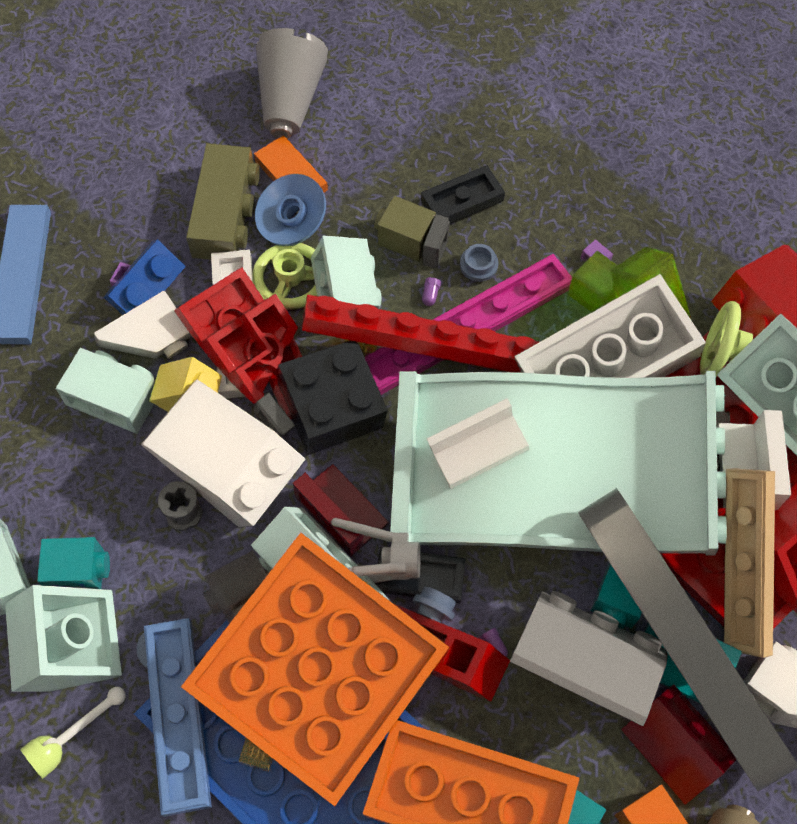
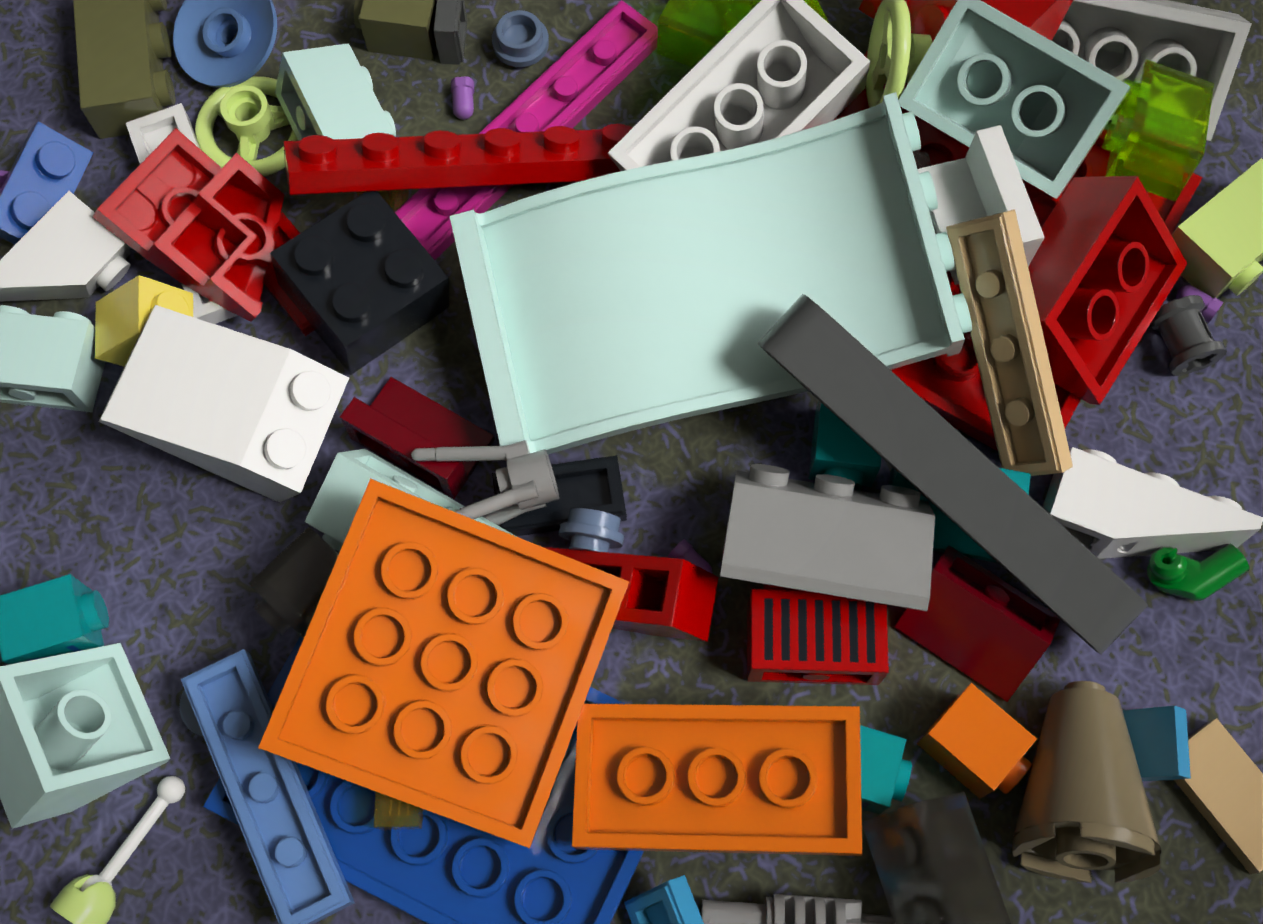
camera: 15 degrees left, 5 degrees up
(174, 495) = (172, 483): dark grey bush -> none
(272, 415) = (282, 328): dark grey tile -> none
(478, 443) = (590, 286): white panel -> none
(564, 722) = (815, 638): none -> red brick

